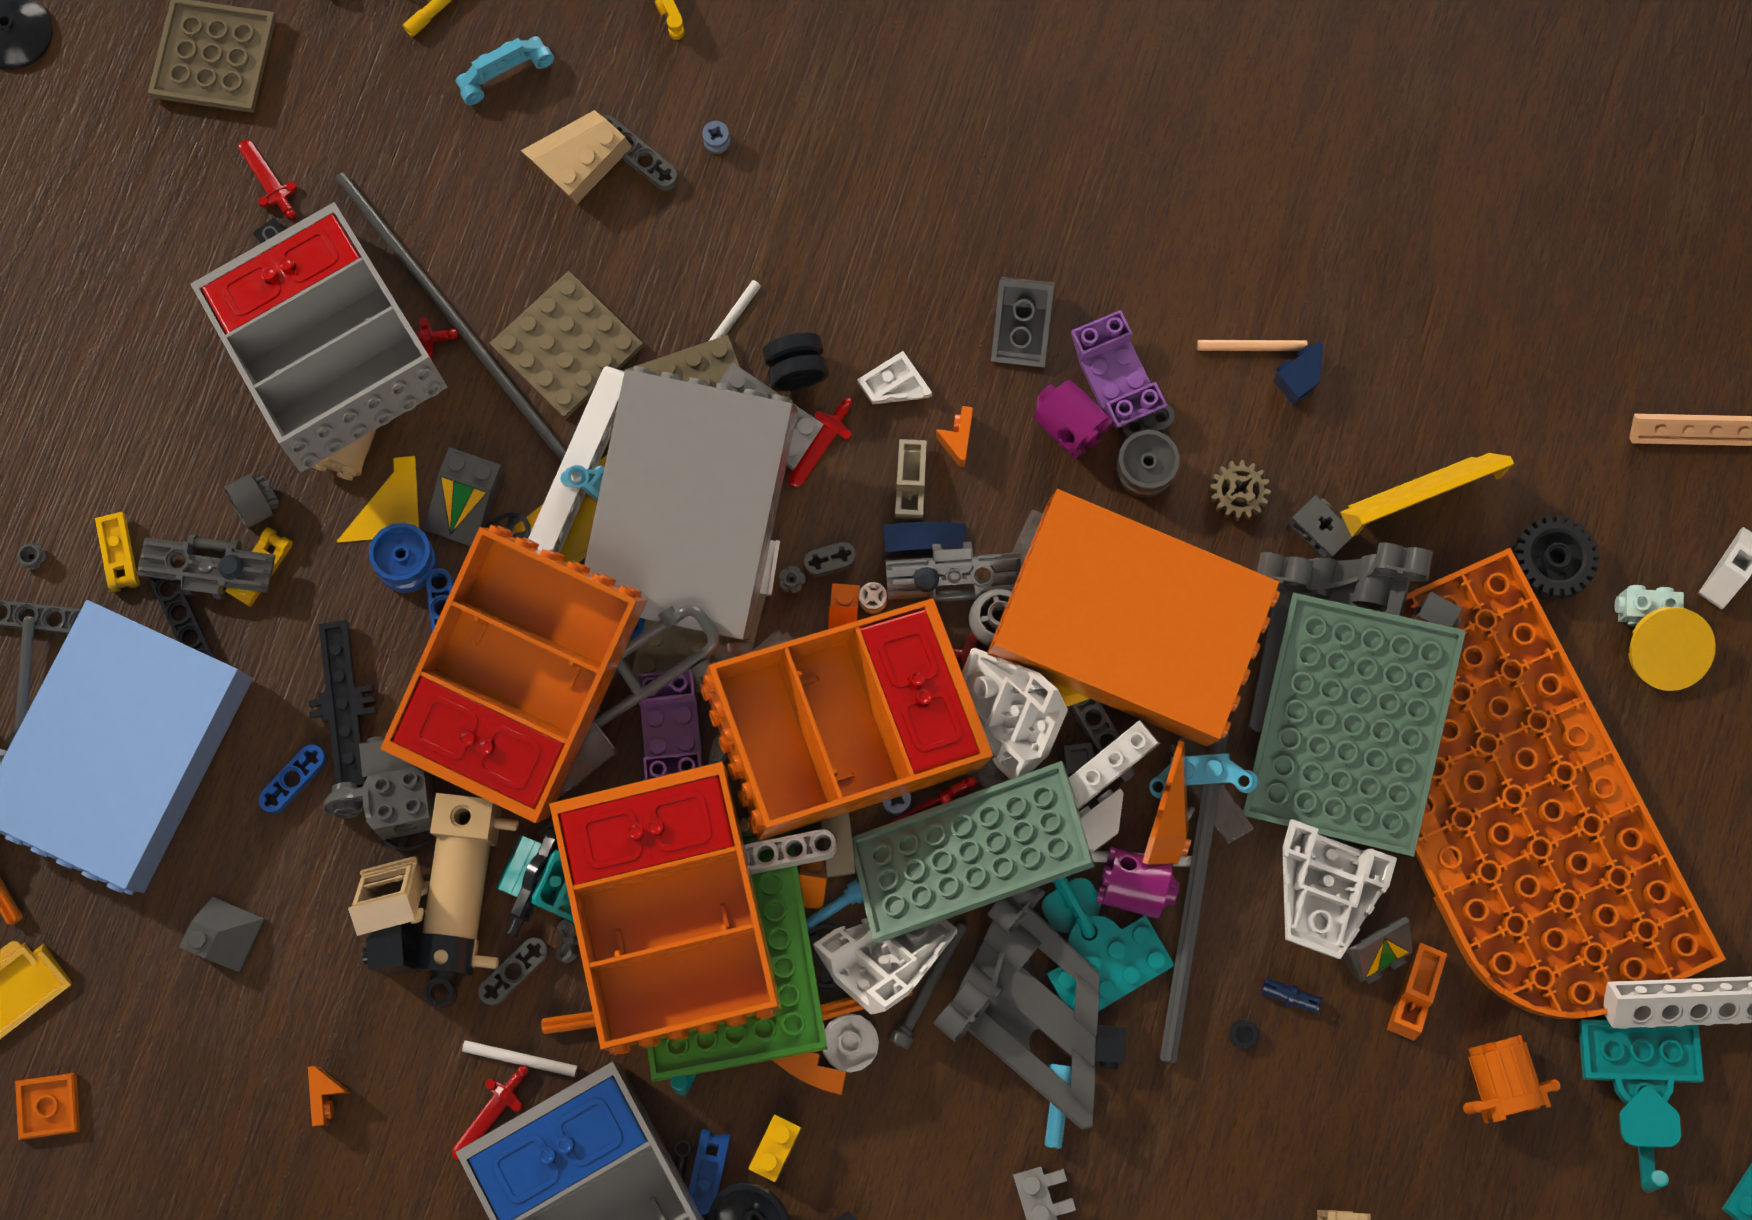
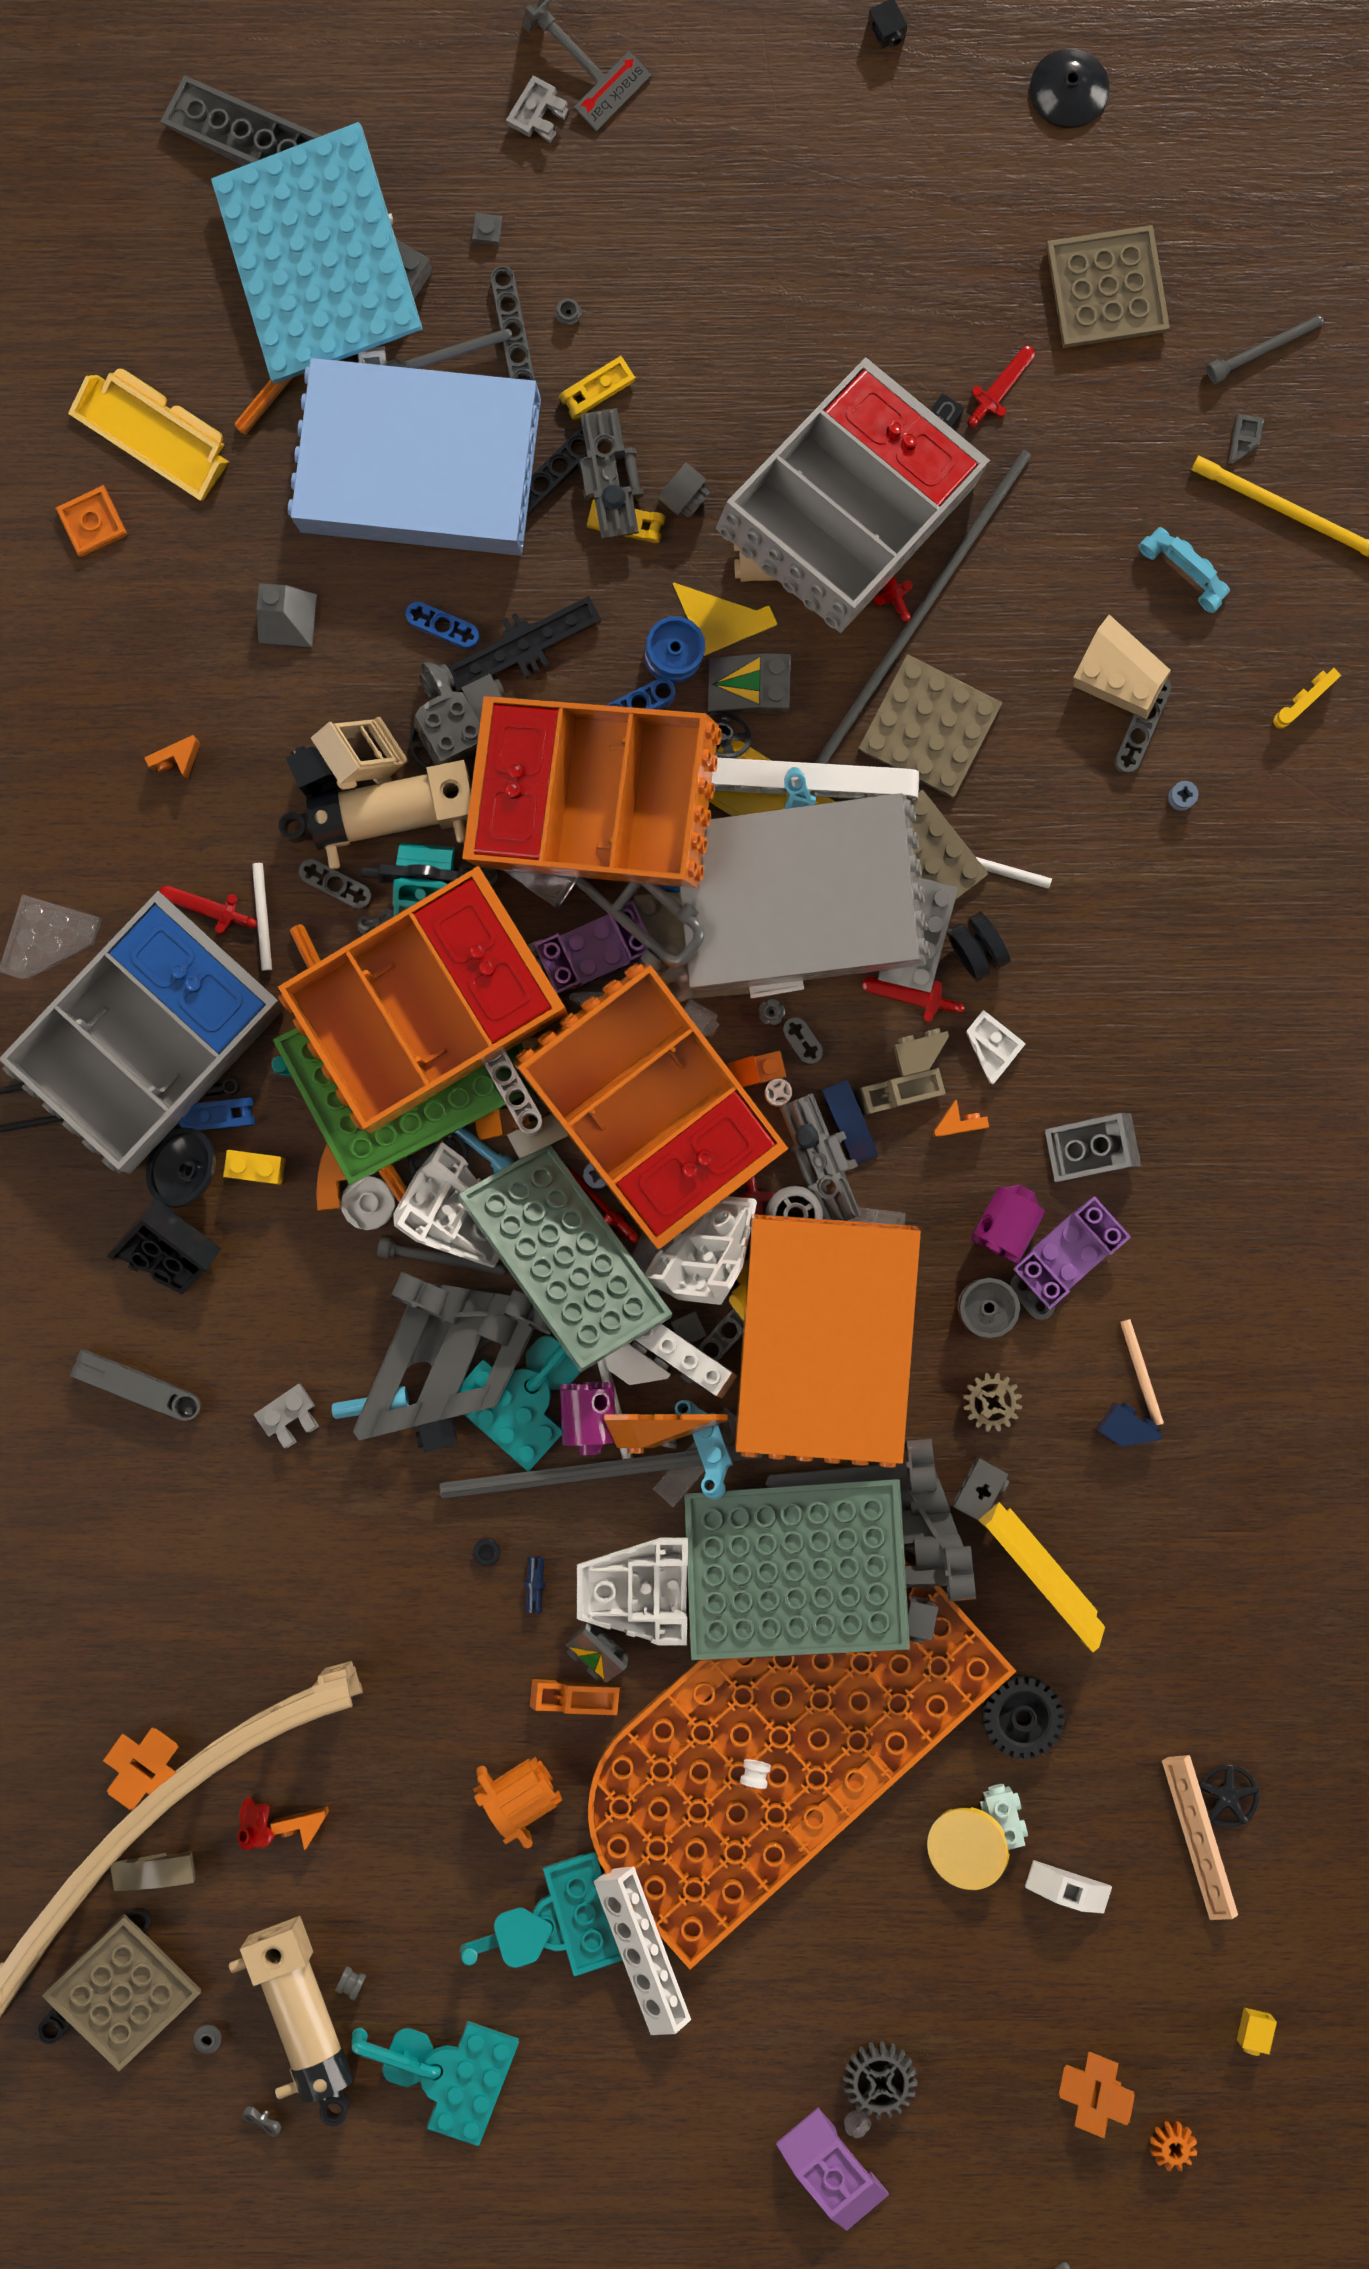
camera: 70 degrees right, 10 degrees up
(880, 453) = (919, 1054): none -> dark tan slope
(1545, 829) = (755, 1773): none -> white wheel
(1682, 392) = (1229, 1796): none -> black wheel

